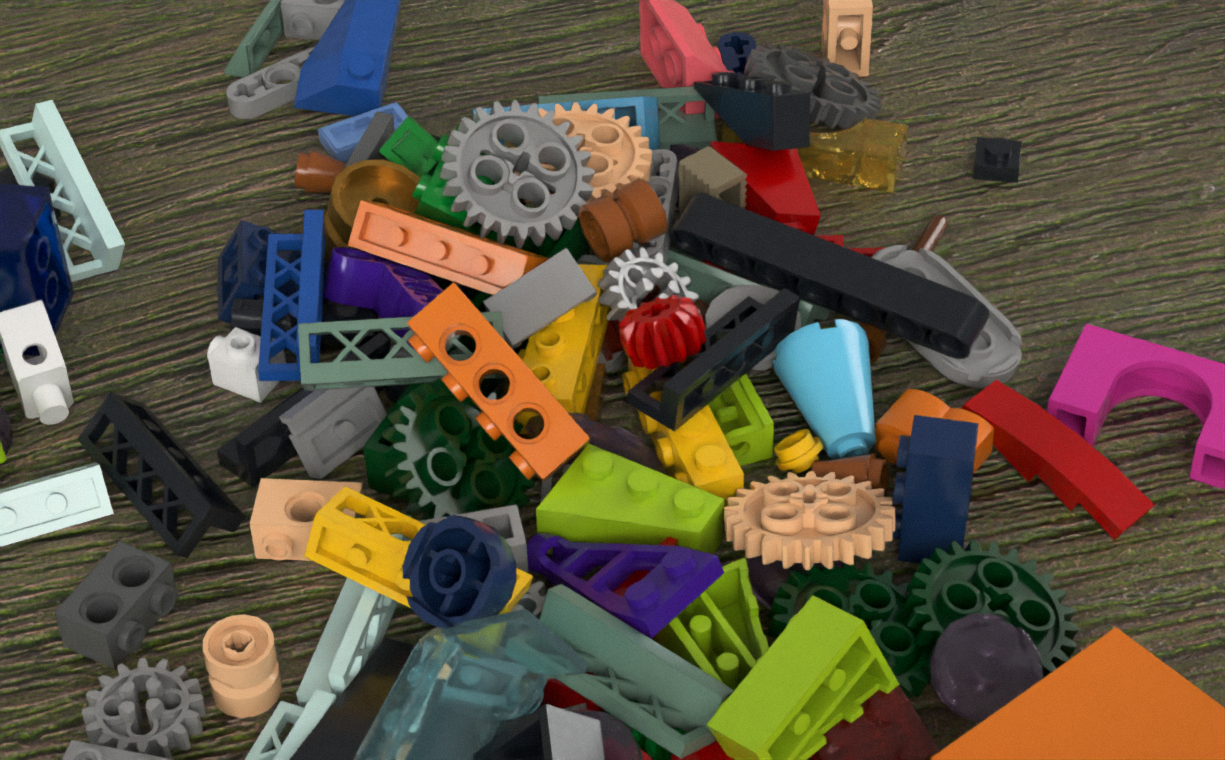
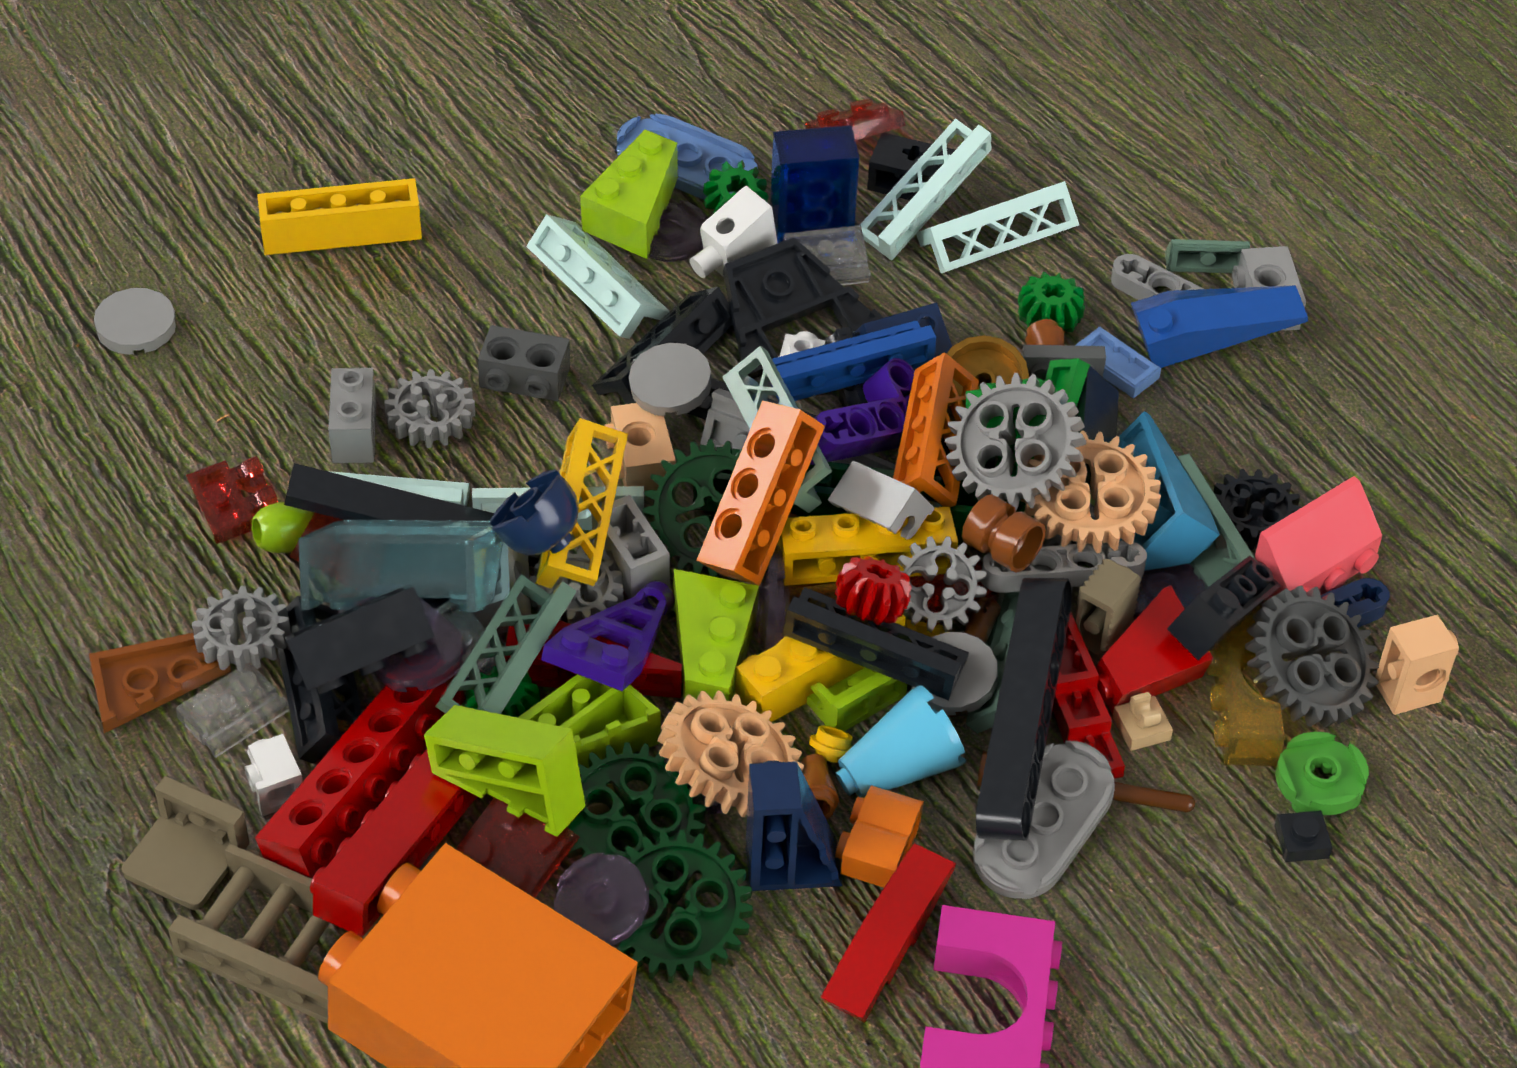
camera: 70 degrees right, 5 degrees up
(96, 309) = (840, 250): none -> clear plate
(117, 161) = (989, 216): none -> light aqua fence
(135, 353) = (782, 287): none -> black wing
(242, 665) = (481, 446): light nougat wheel -> none
(248, 452) = (670, 379): none -> light grey tile
(265, 155) = (1051, 299): none -> green gear
(605, 75) = (1247, 495): none -> black gear
(839, 222) = (1142, 722): none -> tan tile
(955, 132) = (1310, 793): none -> bright green plate

